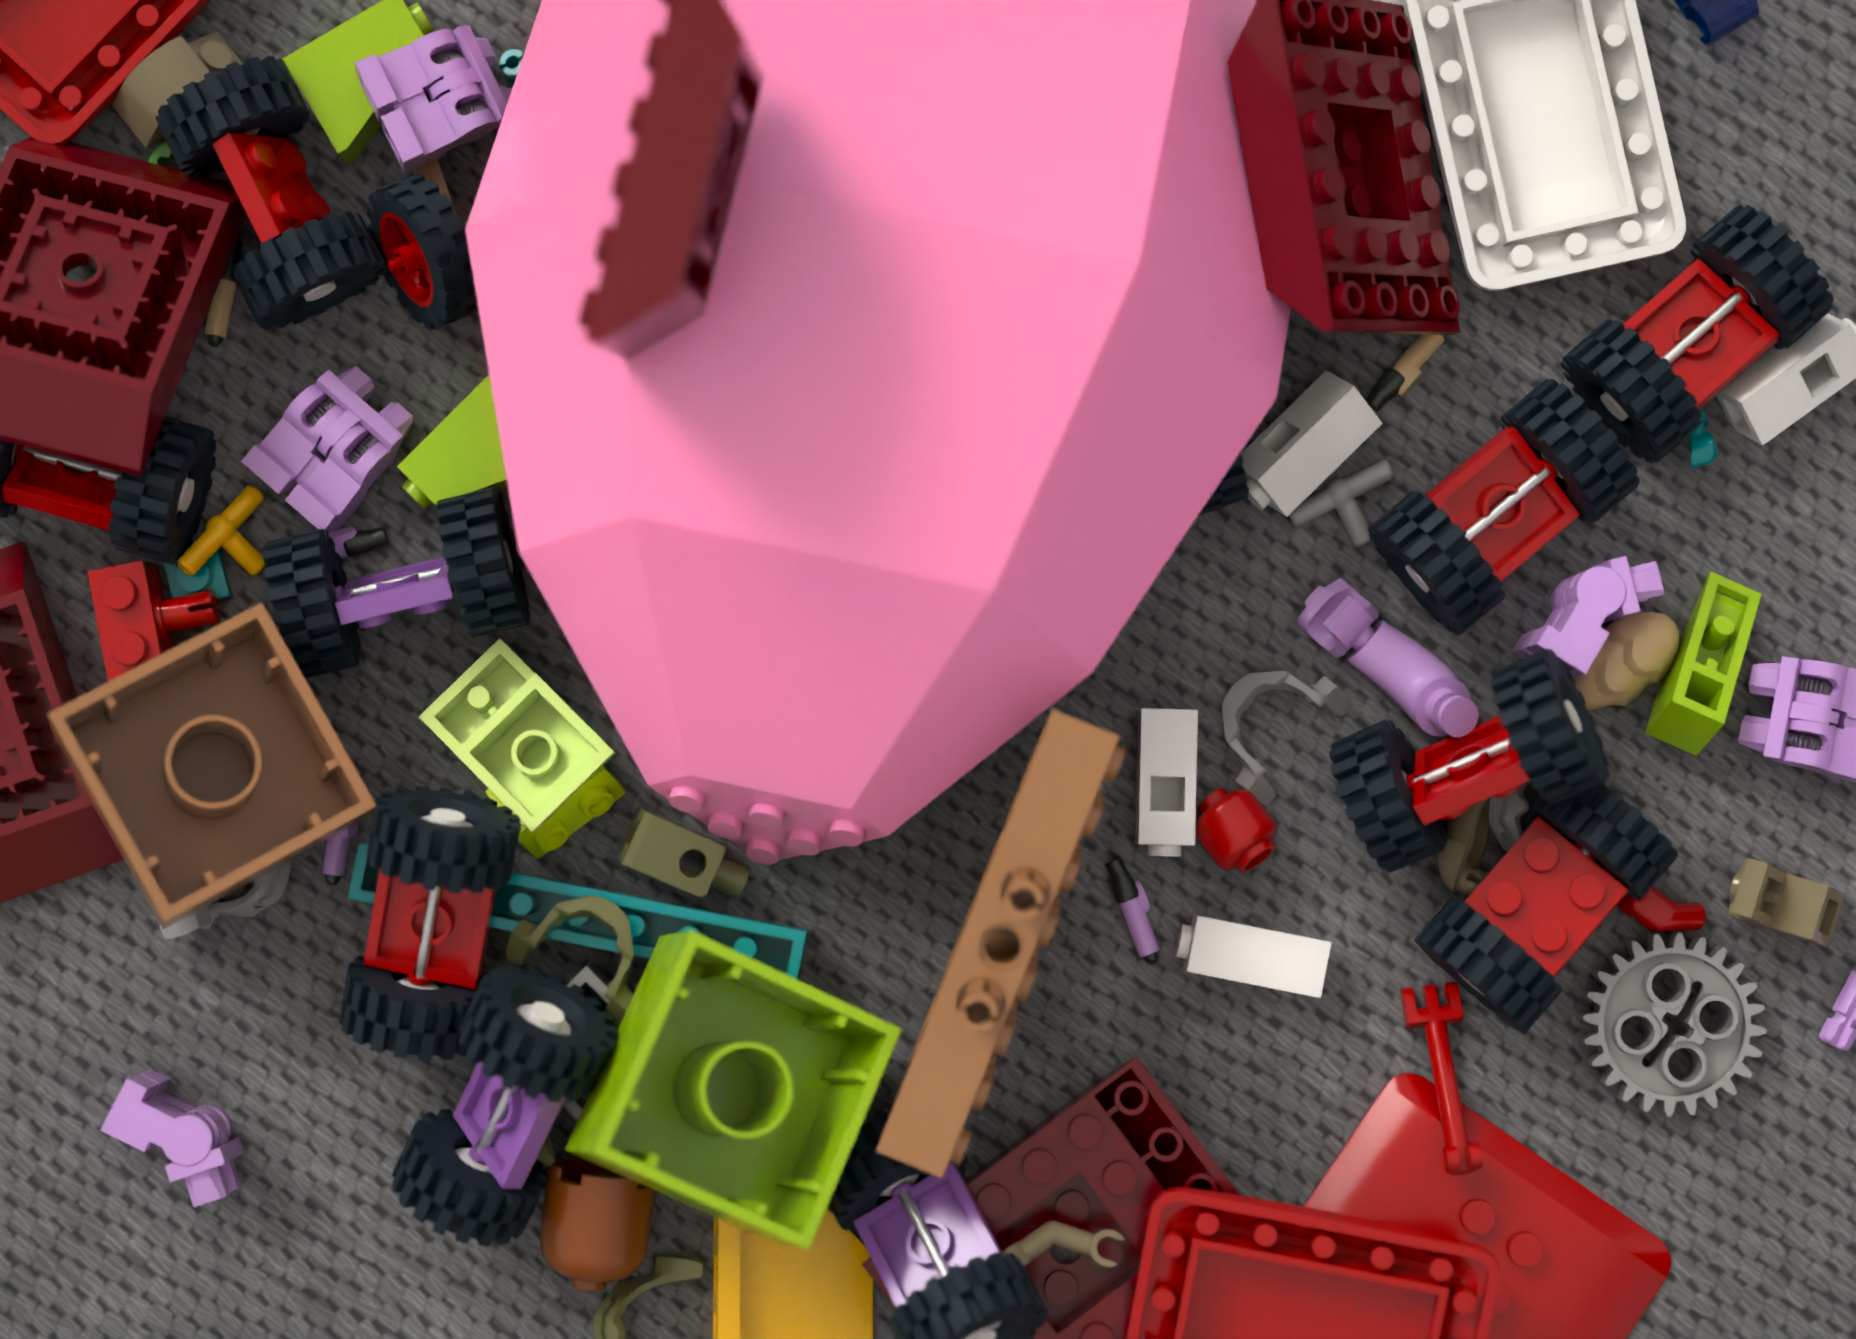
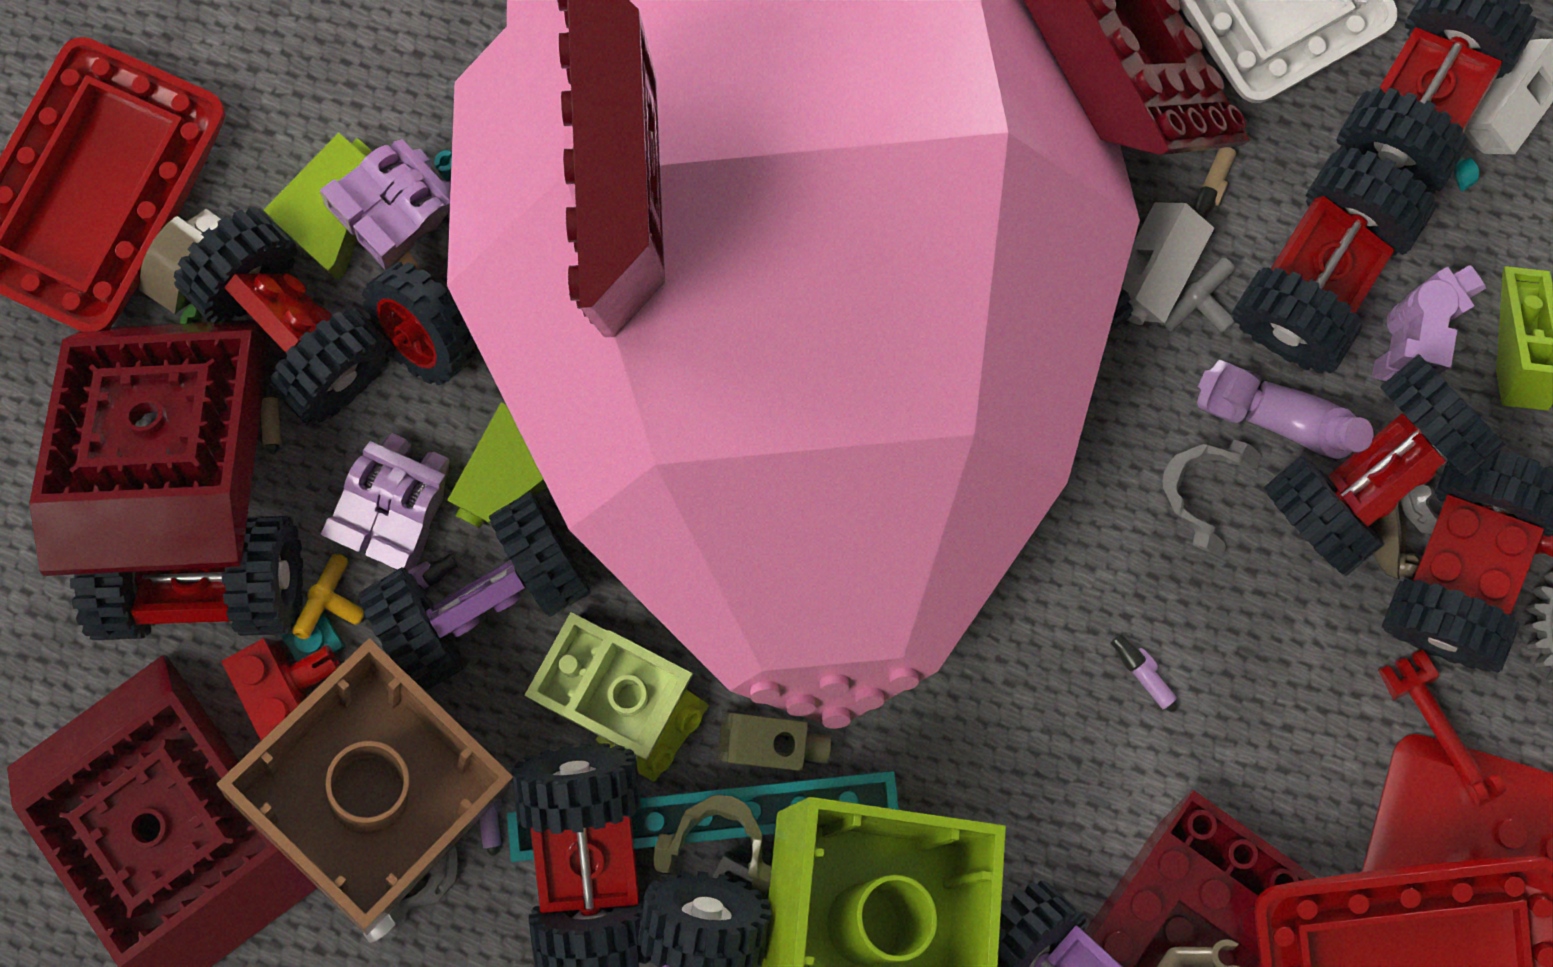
camera: 15 degrees left, 5 degrees down
(1000, 942) = (1057, 727): medium nougat brick -> none
(1166, 780) = (1138, 559): white brick -> none
(1235, 830) = (1206, 582): red head -> none
(1254, 955) = (1256, 678): white brick -> none
(1631, 658) = (1475, 350): tan arm -> none

